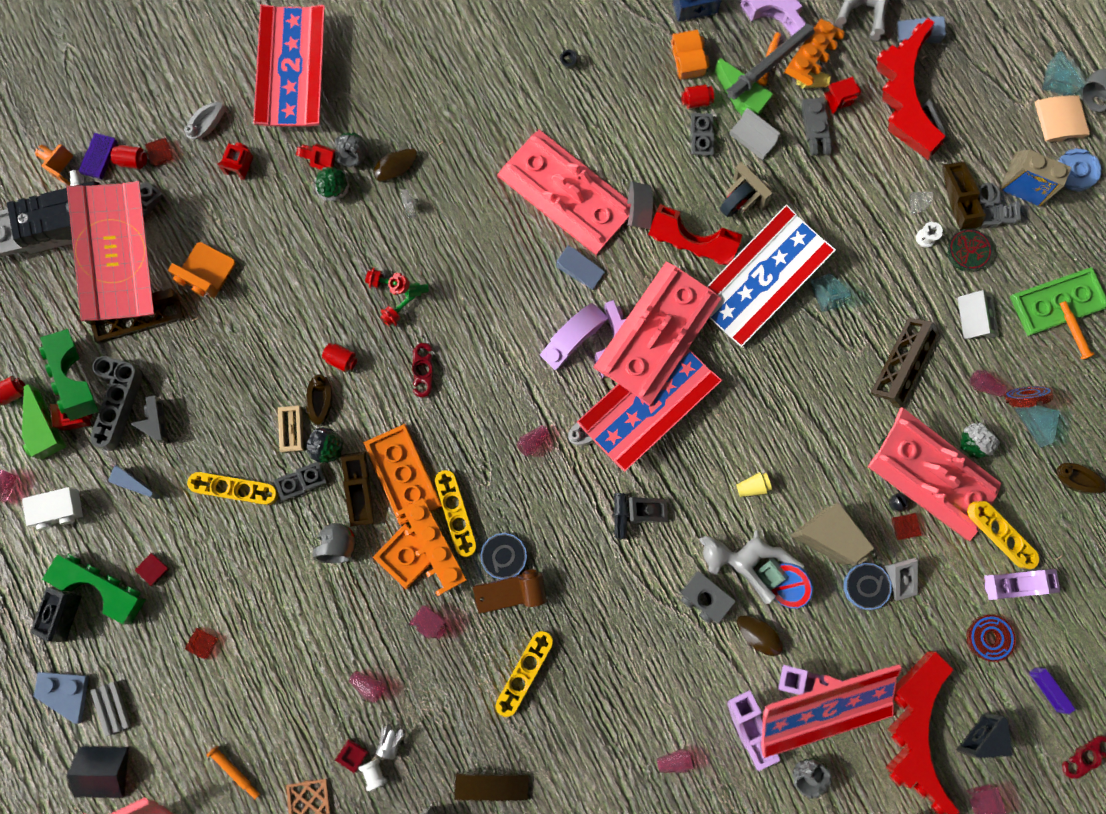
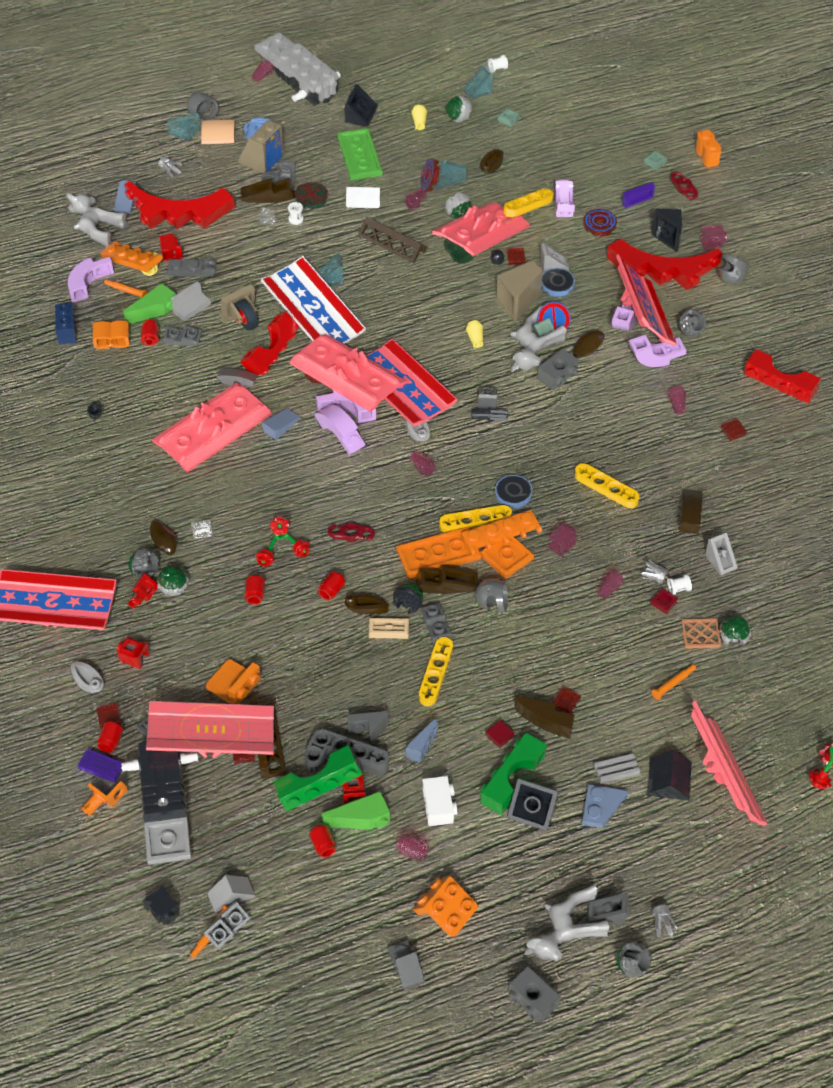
camera: 80 degrees left, 25 degrees down
(172, 618) = (545, 716): none -> dark brown slope
(328, 273) = (254, 589): none -> red brick
(511, 591) = (541, 477): reddish brown door -> none
(746, 81) = (149, 293): dark grey axle -> none
(989, 66) = (167, 164): none -> flat silver piece
(1076, 331) = (381, 147): orange piece -> none

